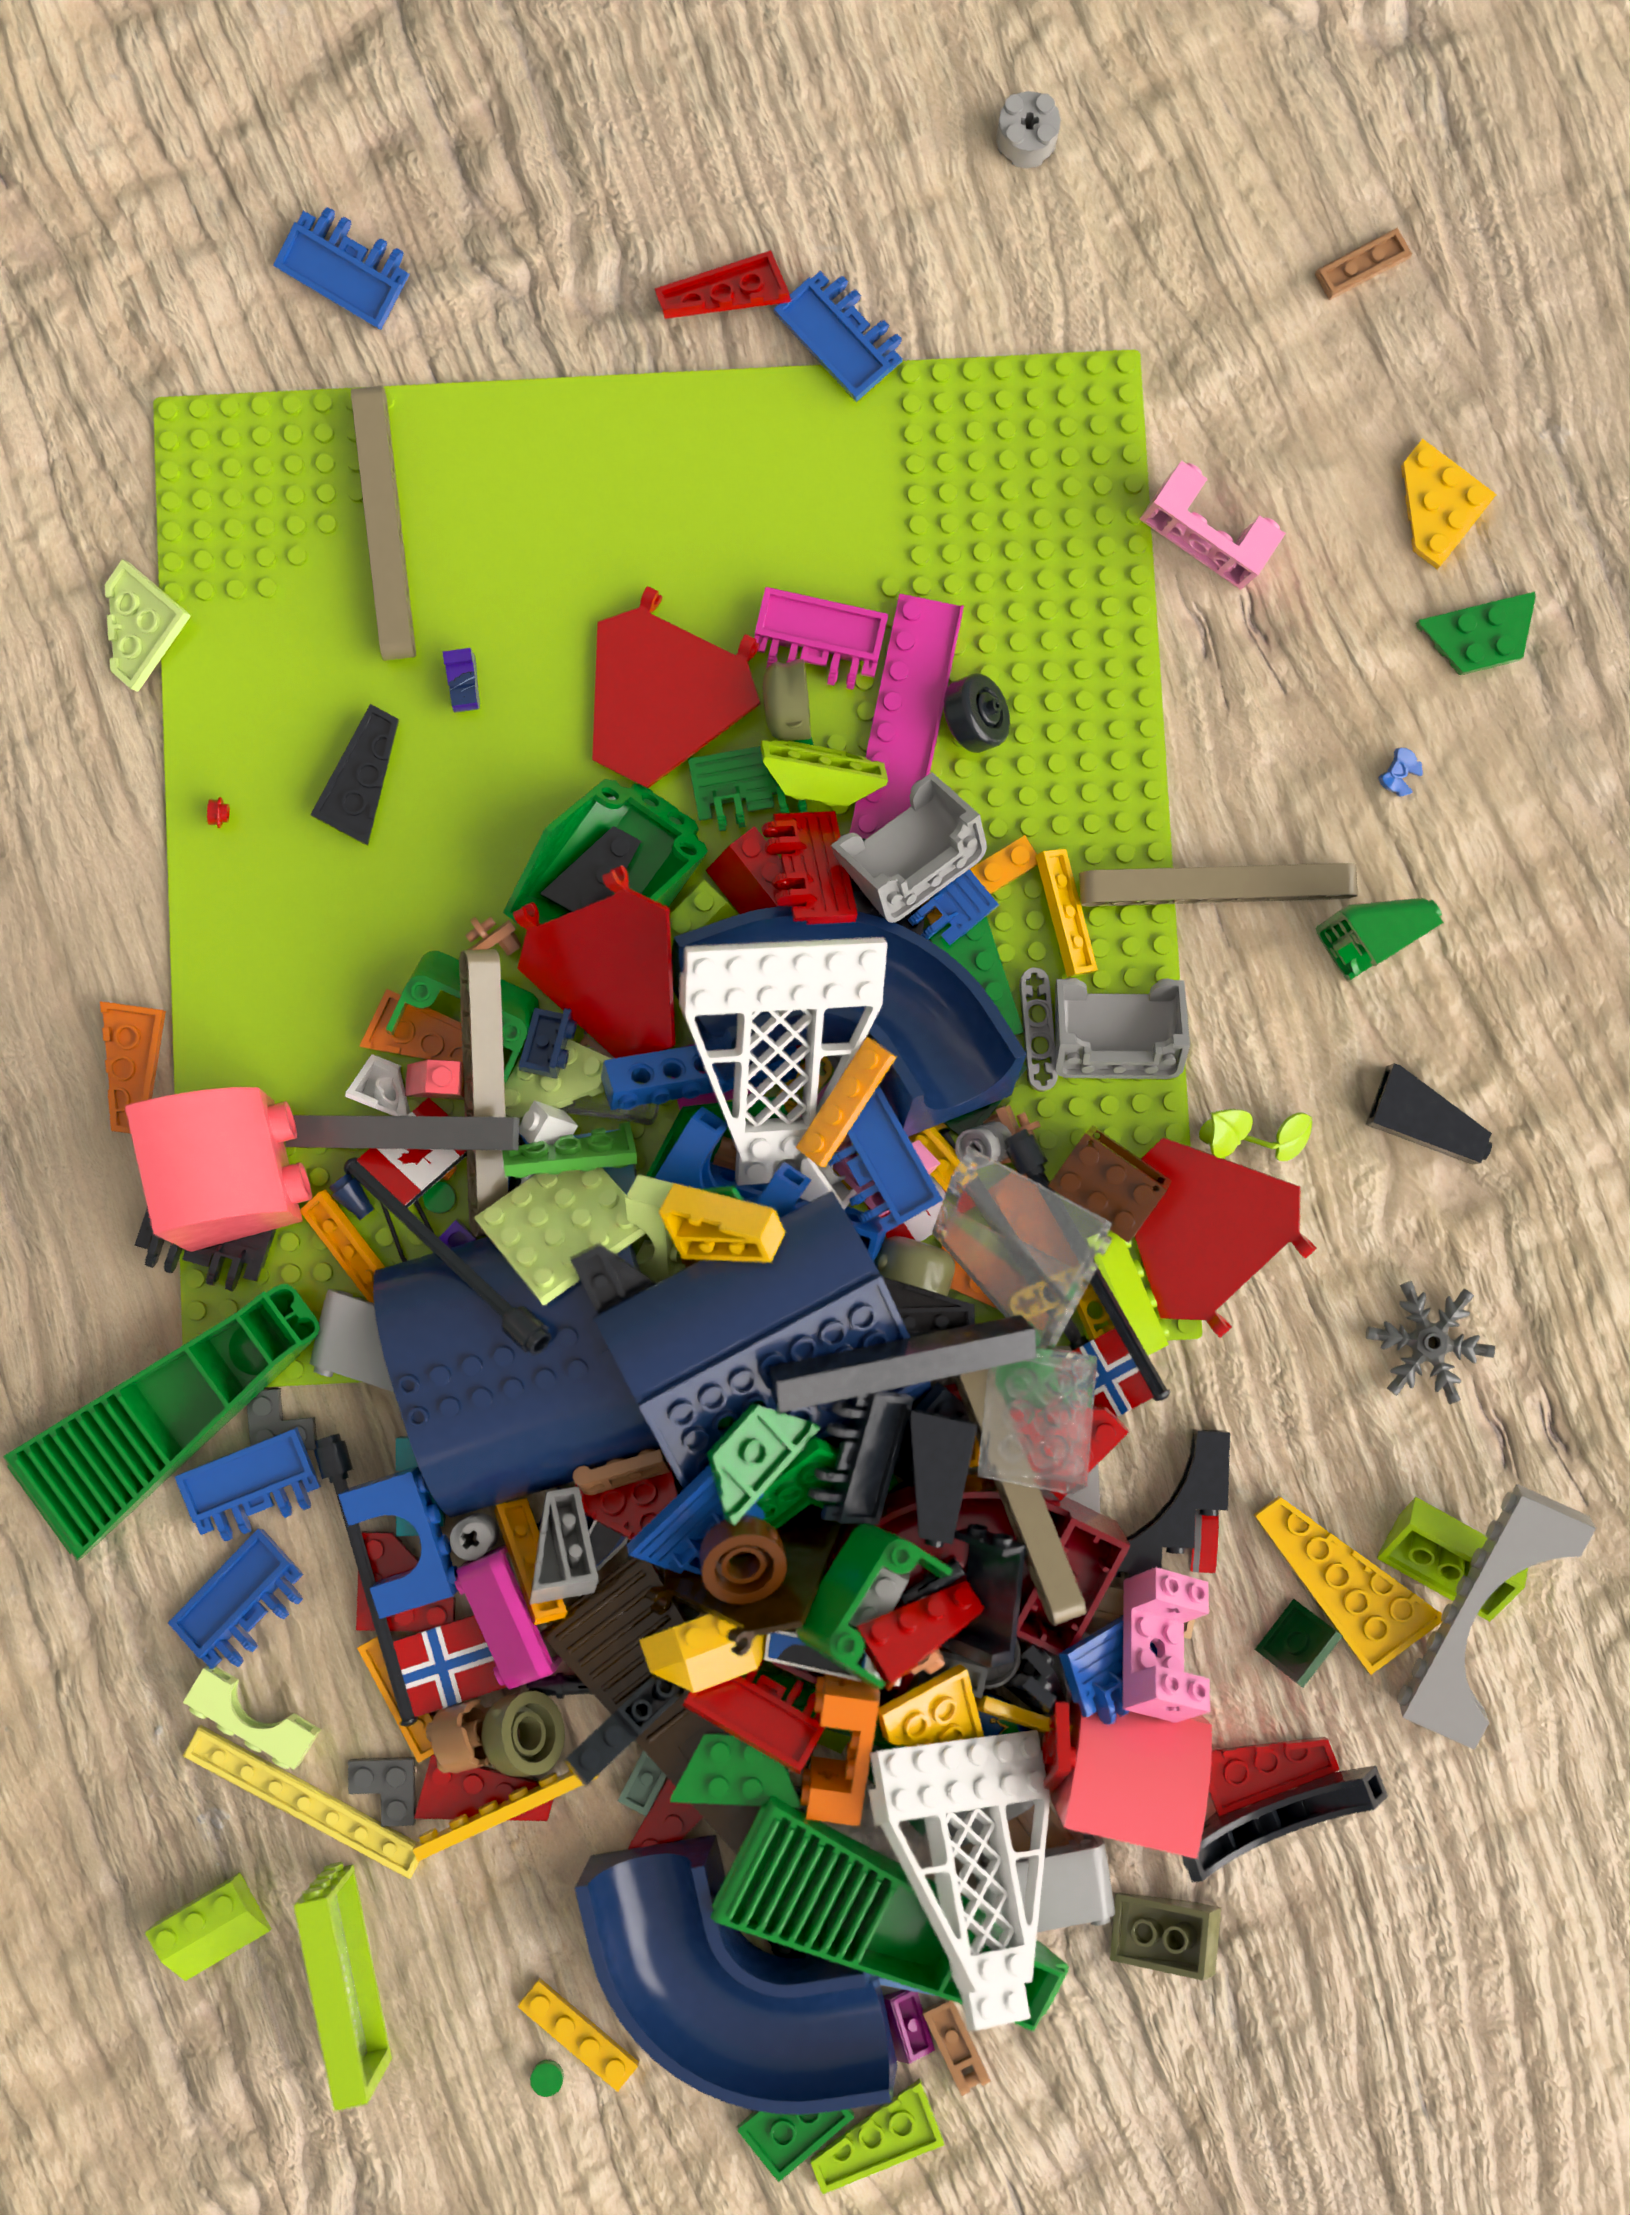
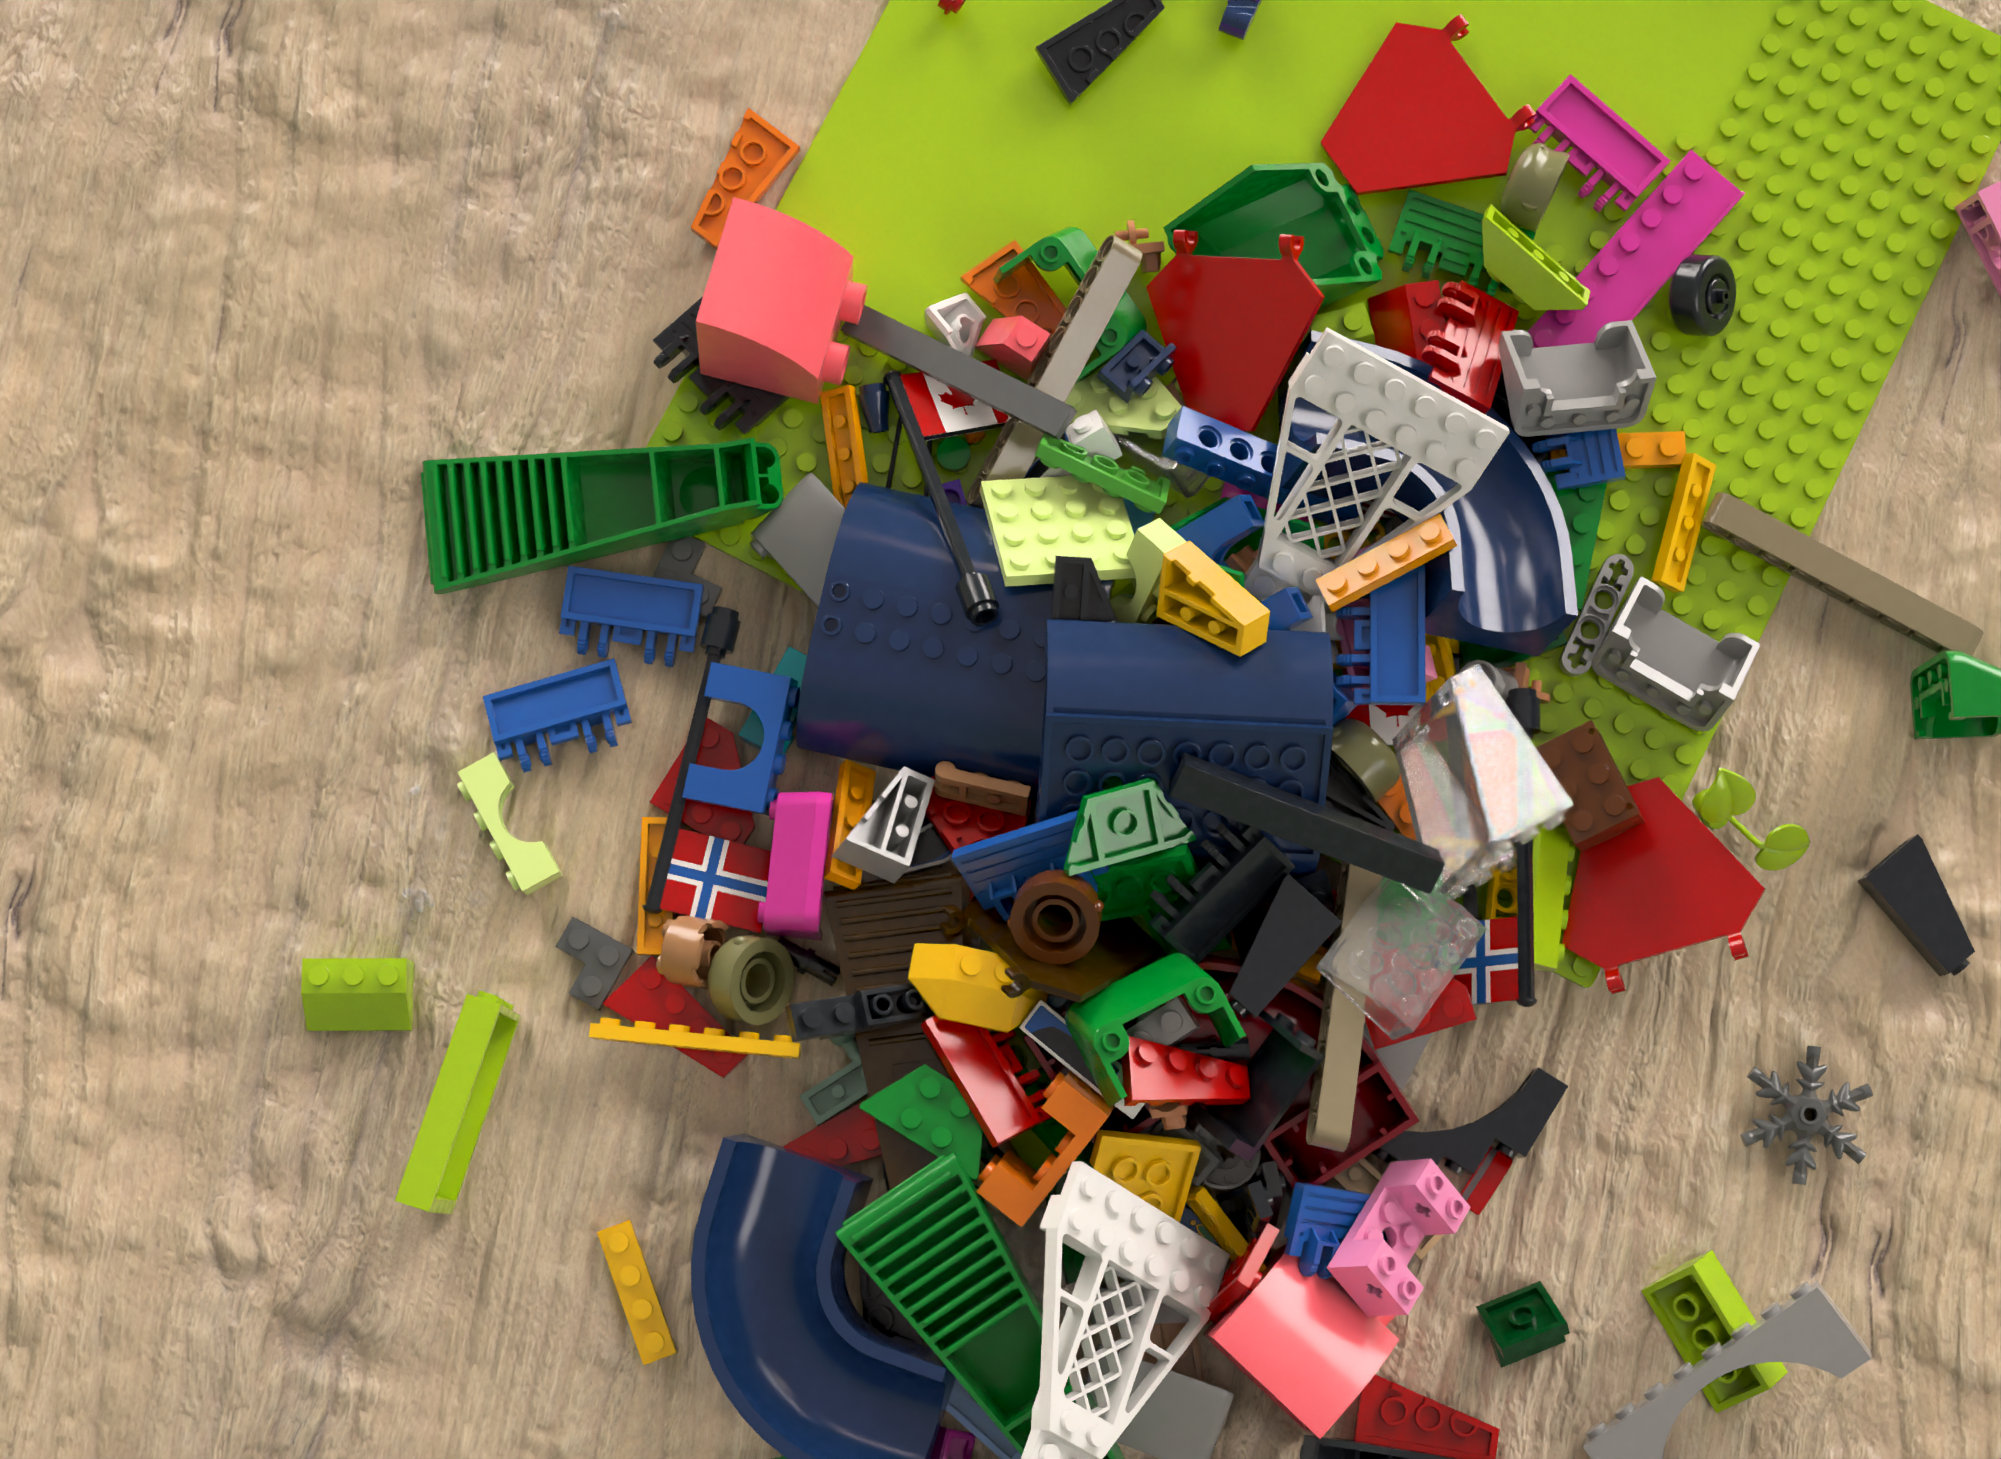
camera: 30 degrees right, 5 degrees down
(302, 1801) = (510, 931): light yellow tile -> none
(486, 1537) = (817, 765): light grey piece -> none
(547, 2078) = (585, 1315): green tile -> none
(583, 880) = (1261, 236): black wing -> none
(1359, 1599) = (1607, 1324): yellow wing -> none

